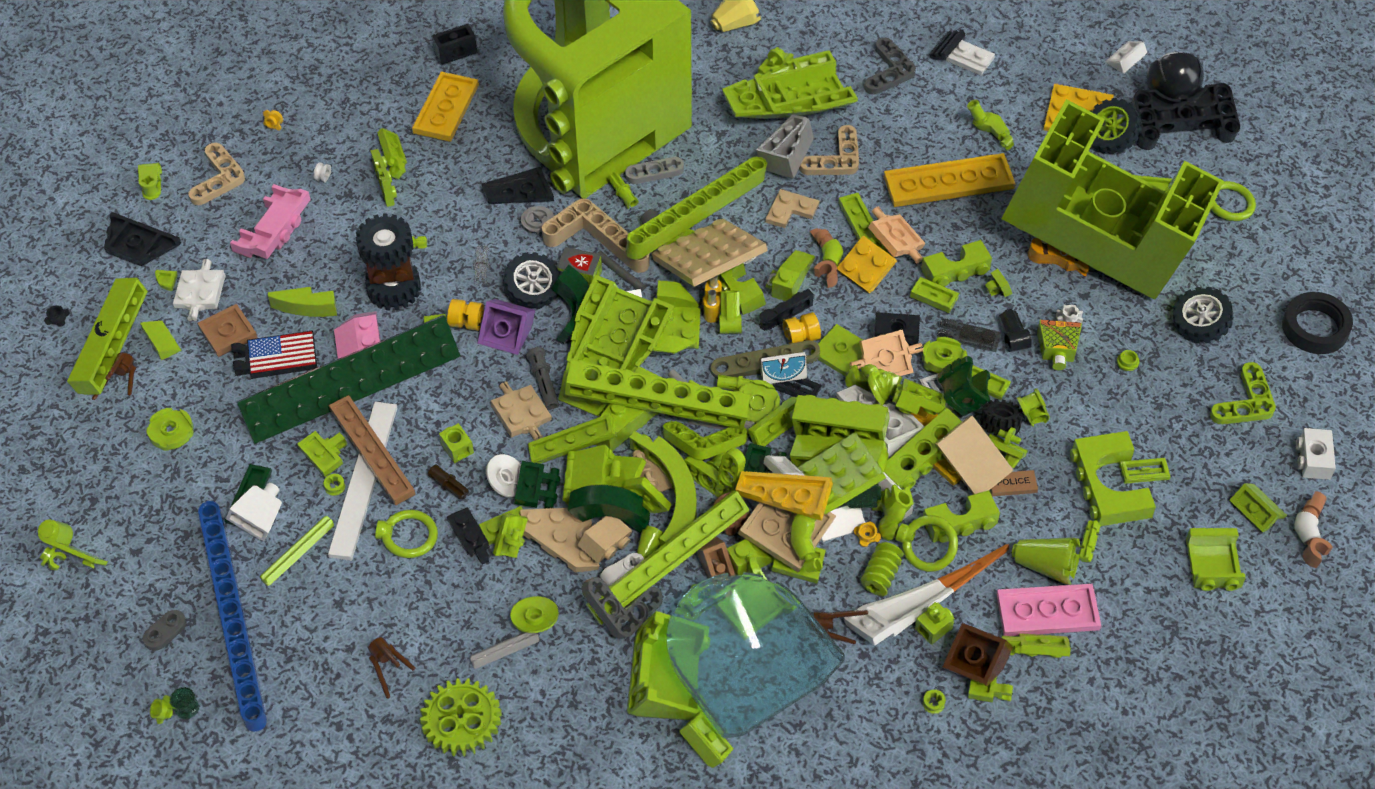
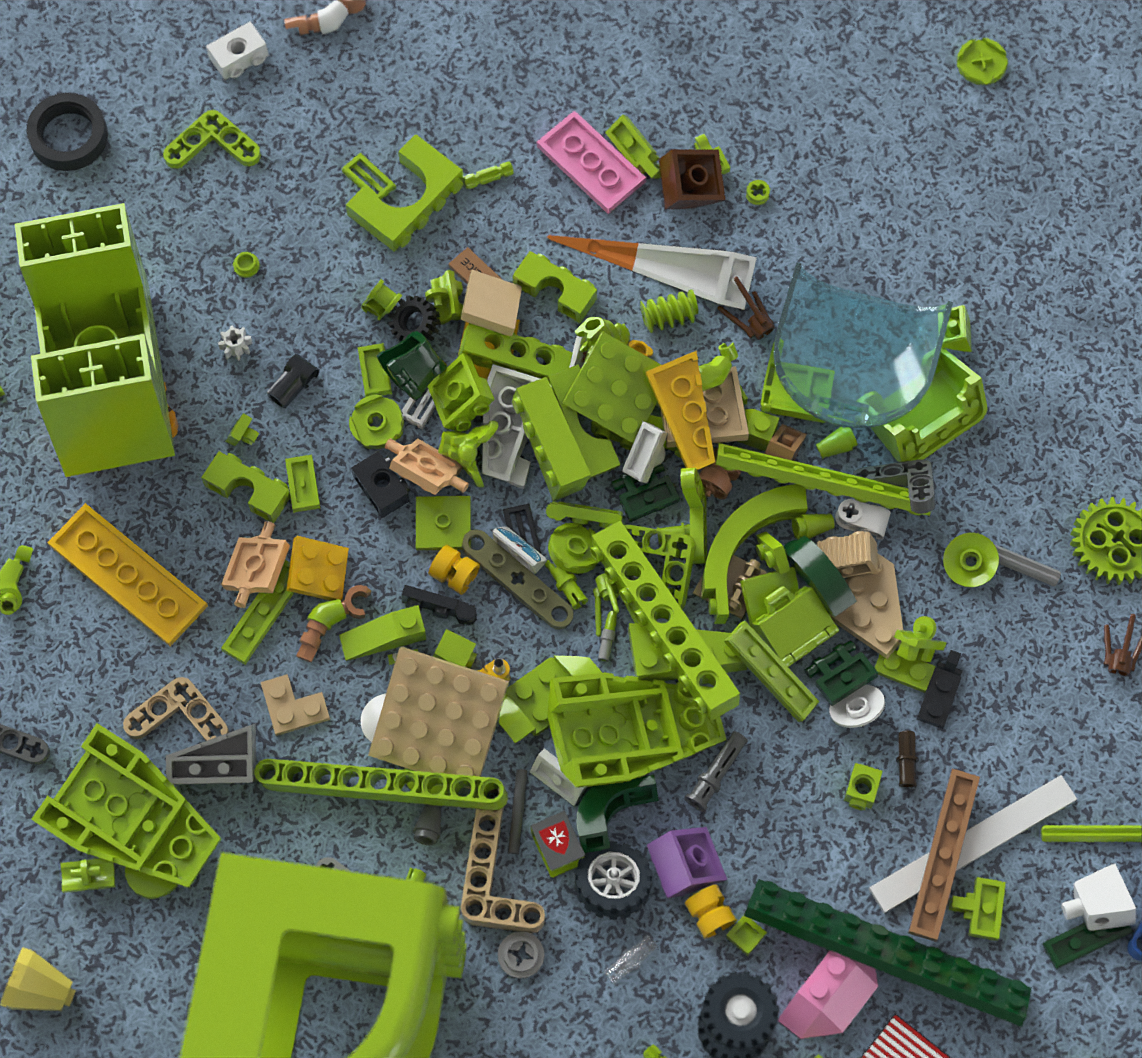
camera: 130 degrees left, 15 degrees up
(330, 479) = (1012, 868): lime bush -> none
(385, 528) = (1006, 770): lime piece -> none
(518, 188) = (492, 1011): black wing -> none
(521, 411) = (770, 762): tan plate -> none
(730, 318) = (493, 646): lime piece -> none
(906, 536) = (614, 313): lime piece -> none
(934, 622) = (684, 232): lime brick -> none
(970, 335) = (326, 418): clear smoke hinge -> none
(1049, 557) = (540, 186): lime cone -> none
(1058, 341) = (275, 331): lime torso -> none
(1204, 300) = (163, 217): black wheel -> none
(1214, 558) = (427, 68): lime panel -> none
(1257, 506) = (336, 66): lime panel -> none

